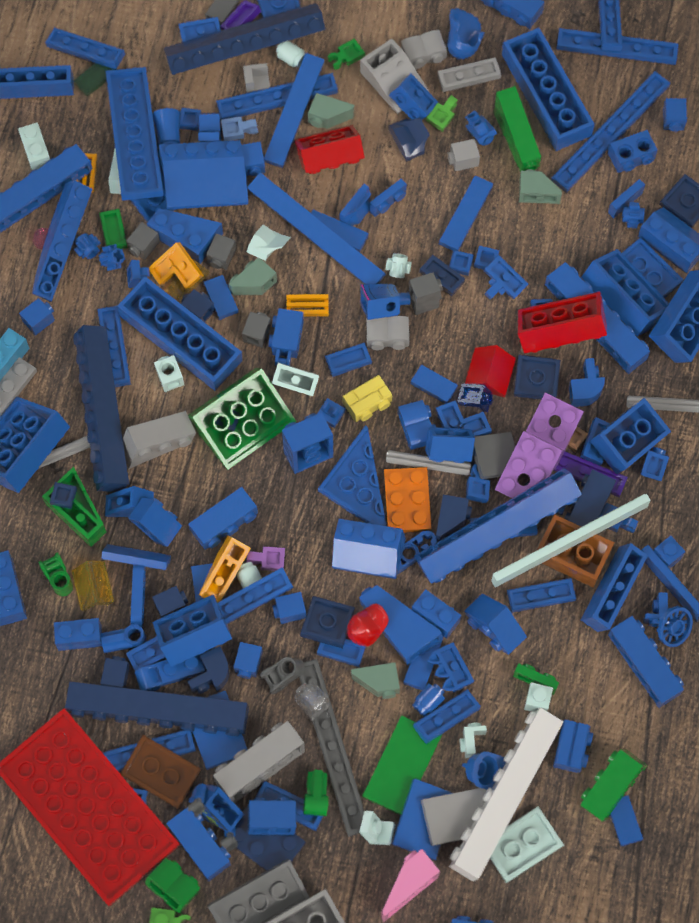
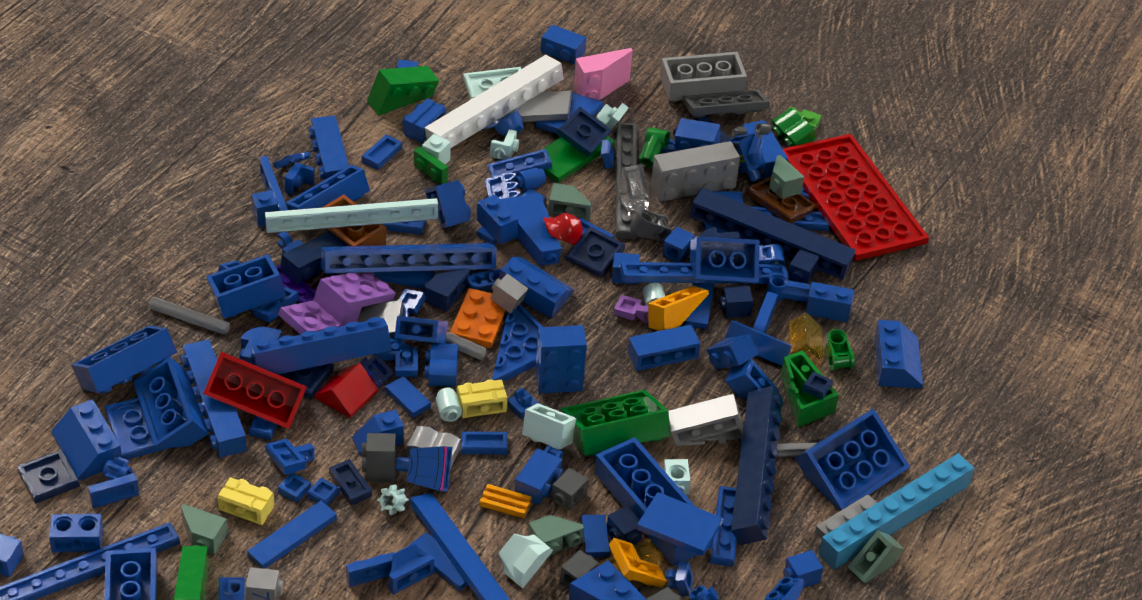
camera: 165 degrees left, 25 degrees down
(146, 295) = (680, 523): none -> blue tile
(163, 788) = (785, 179): none -> sand green slope
(362, 768) = (607, 154): none -> blue tile
(388, 515) = (508, 293): none -> light grey brick
(394, 381) = (448, 405): none -> light aqua brick
(395, 779) = (583, 131): none -> dark blue plate
(438, 330) = (385, 422): none -> blue slope
(516, 226) = (246, 500): none -> light yellow brick
(527, 386) = (323, 346): none -> blue brick
(596, 689) = (382, 152): none -> blue tile

